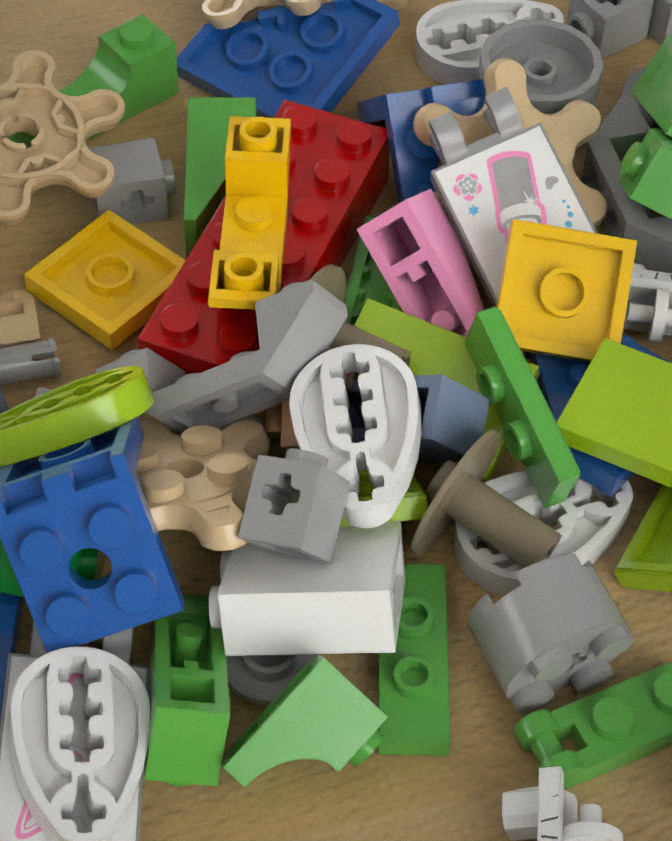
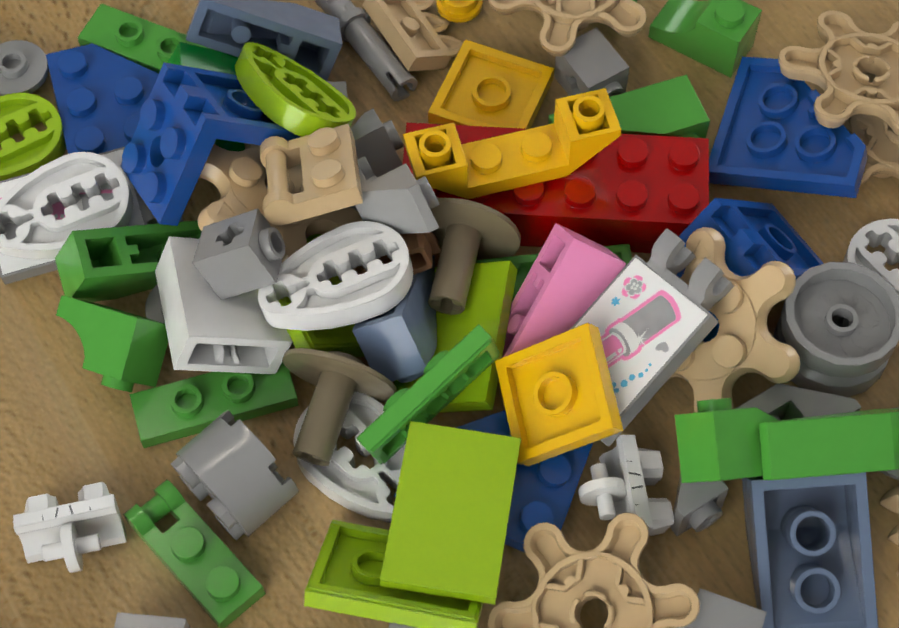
camera: 75 degrees right, 10 degrees up
(217, 384) = (328, 174): none -> tan plate

